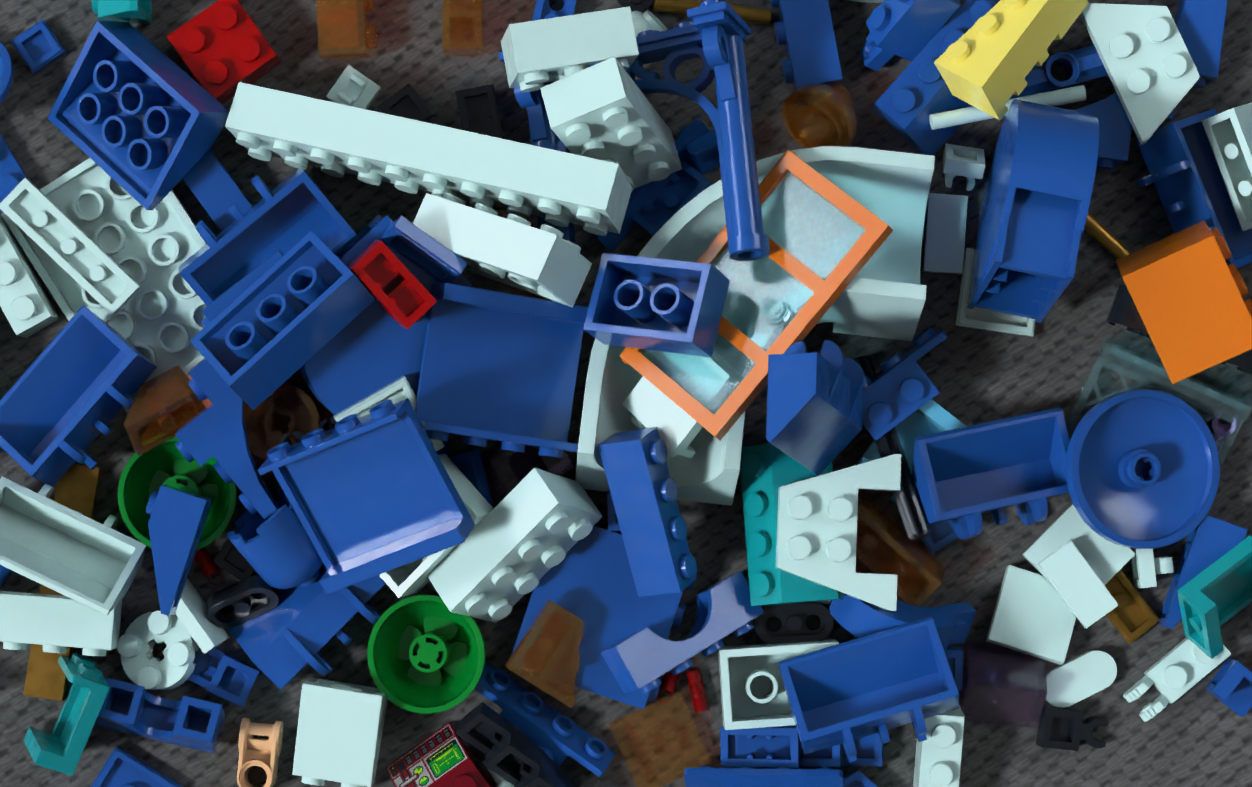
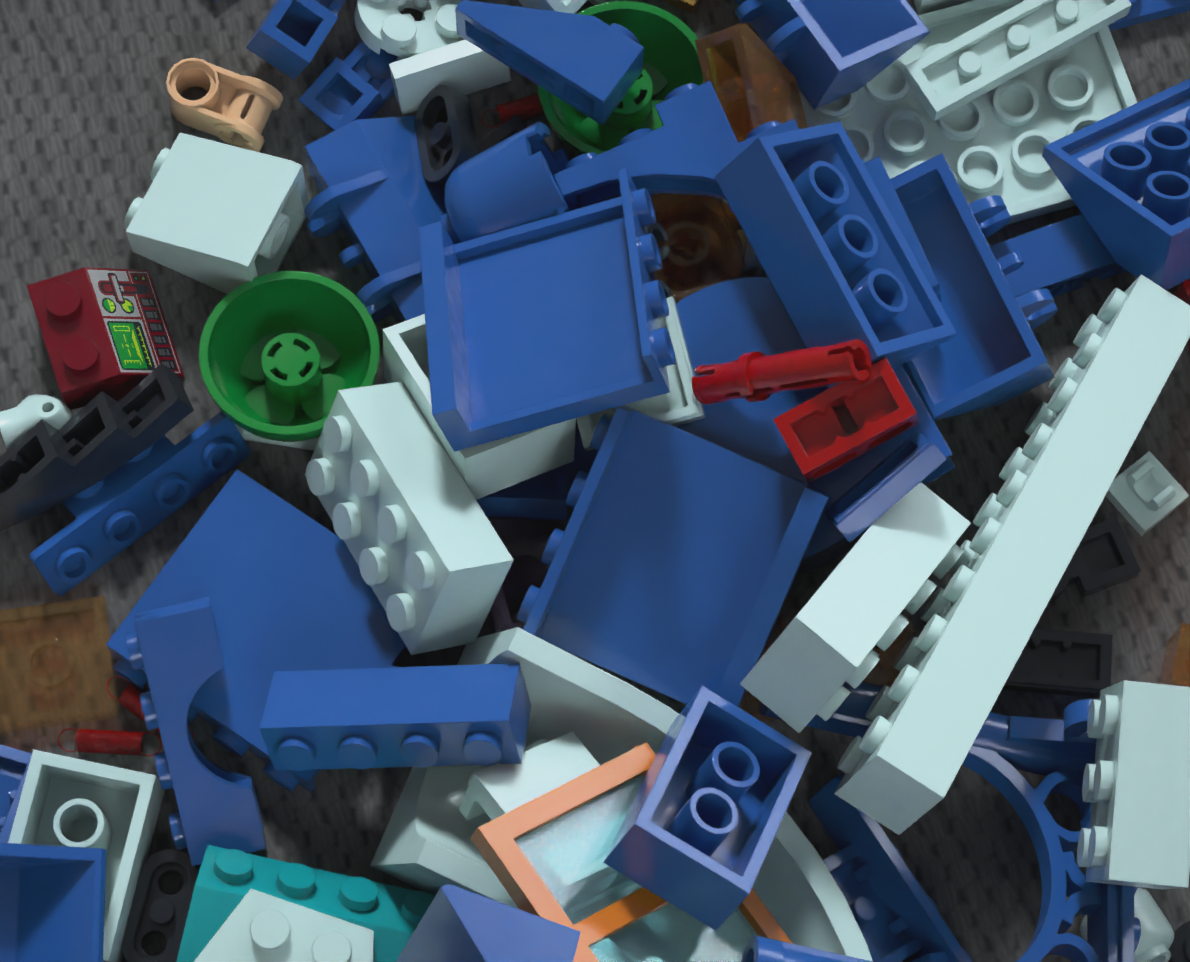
camera: 105 degrees right, 15 degrees down
(376, 346) = (760, 376): none -> red pin
(550, 652) = (233, 528): clear orange wing -> none
(611, 120) = (1008, 826): light aqua brick -> none

